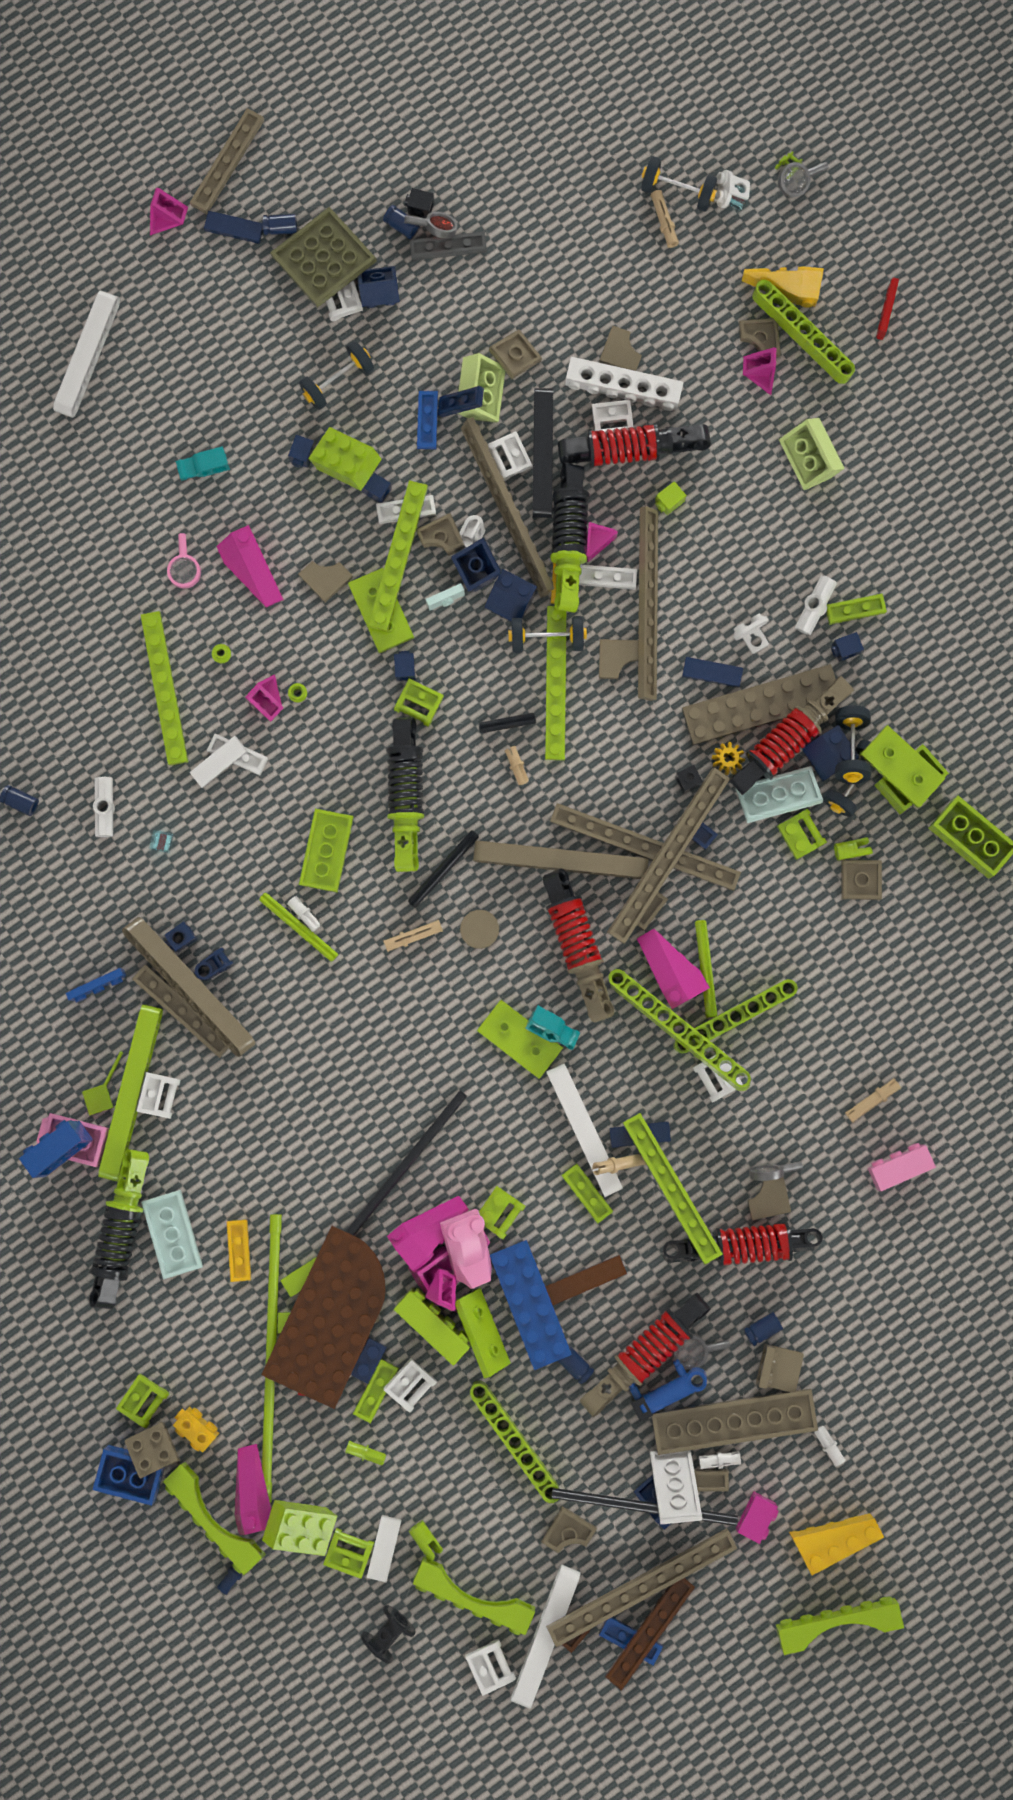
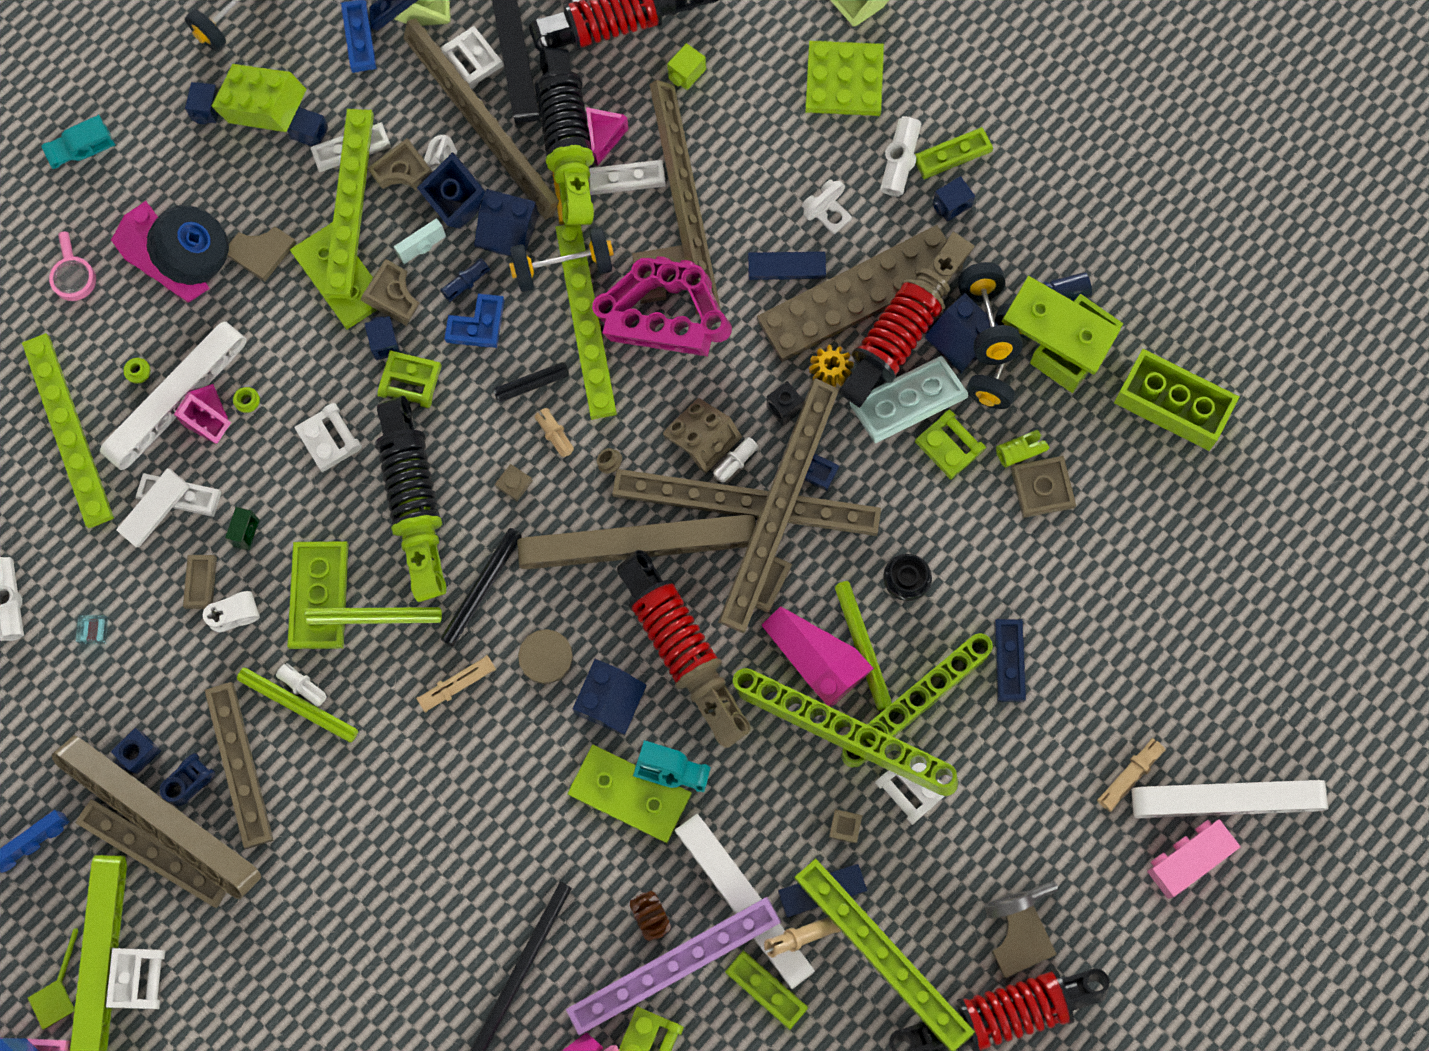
camera: 10 degrees left, 10 degrees down
(243, 822) = (199, 581): none -> dark tan tile
(245, 679) = (159, 407): none -> white beam
(251, 961) = (239, 765): none -> dark tan plate
(267, 850) = (235, 612): none -> white piece
(274, 567) = (187, 245): none -> black wheel
(280, 791) = (242, 528): none -> dark green piece
(346, 737) = (320, 442): none -> white plate
(364, 875) = (373, 615): none -> lime axle
(415, 633) = (390, 294): none -> dark tan tile
(473, 634) = (465, 280): none -> dark blue pin
(478, 675) = (483, 328): none -> blue plate
(480, 796) = (513, 482): none -> dark tan plate
(518, 1127) = (650, 916): none -> reddish brown gear
(519, 968) = (609, 697): none -> dark blue slope
(527, 1165) = (673, 966): none -> lavender plate
(552, 795) = (609, 460): none -> dark tan plate
(596, 668) = (635, 287): none -> dark pink brick
(624, 788) = (703, 434): none -> dark tan bracket
(643, 813) = (735, 460): none -> white axle
(665, 1094) = (845, 826): none -> dark tan plate
(748, 926) = (907, 577): none -> black piece
(788, 531) = (844, 78): none -> lime plate
(807, 1001) = (1010, 660): none -> dark blue tile
(916, 734) = (1072, 286): none -> dark blue piece
(937, 1131) = (1229, 799): none -> white beam

